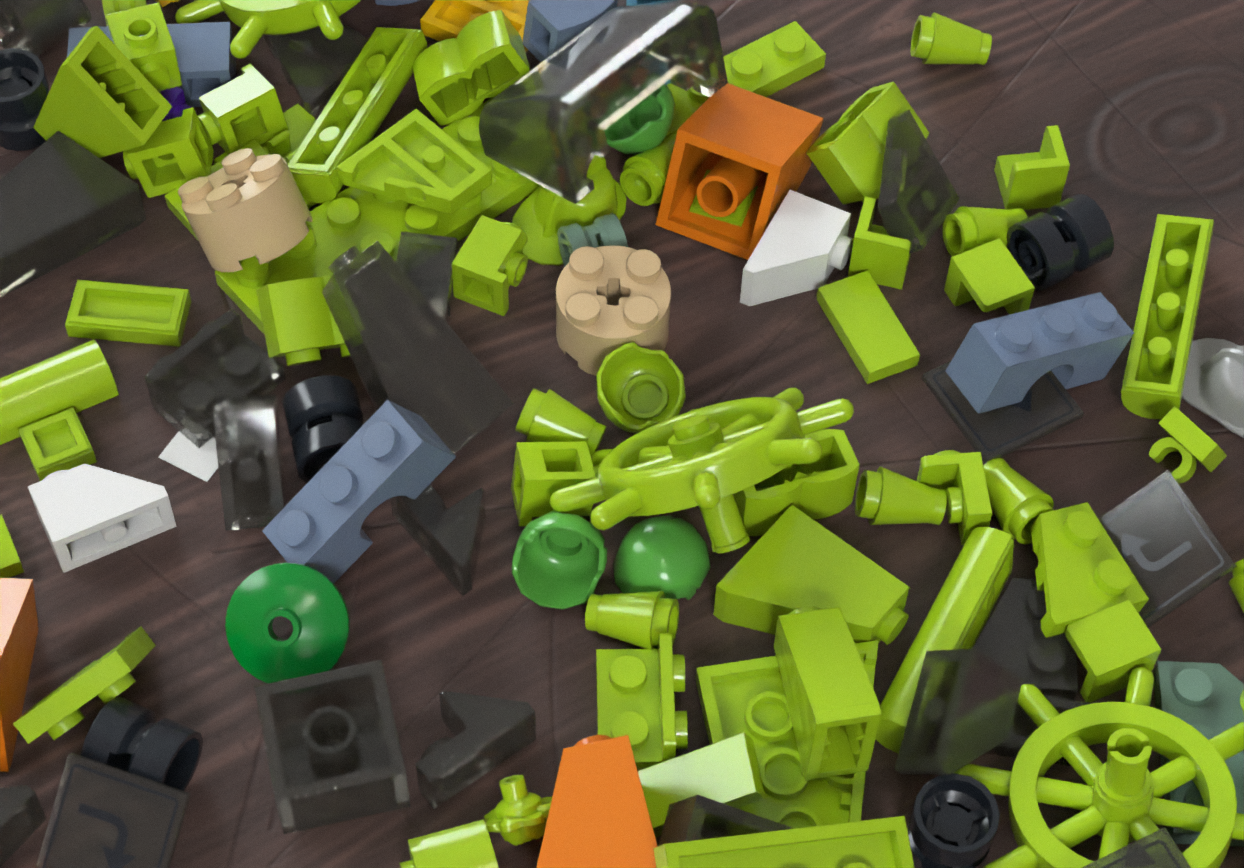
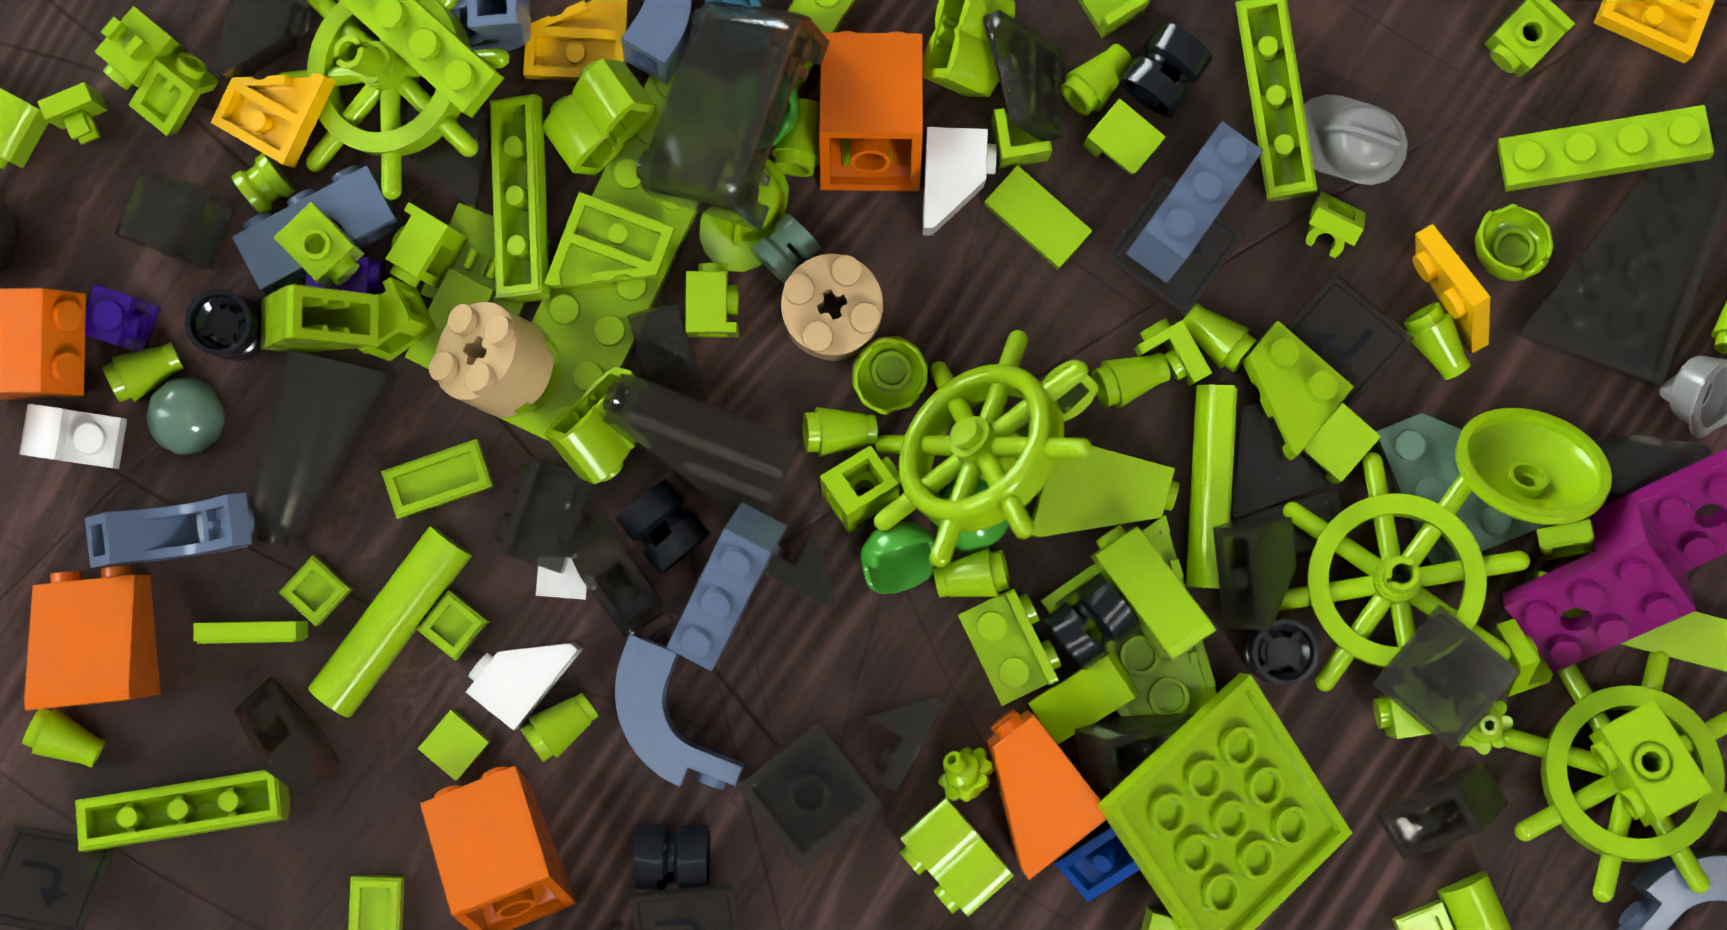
camera: 25 degrees left, 30 degrees up
(102, 576) = (558, 726): none -> lime cone
(103, 677) = (603, 825): lime wing -> none
(197, 605) = (646, 723): none -> sand blue arch
(309, 603) = (717, 693): green dish -> none
(764, 687) = (1105, 609): none -> black wheel

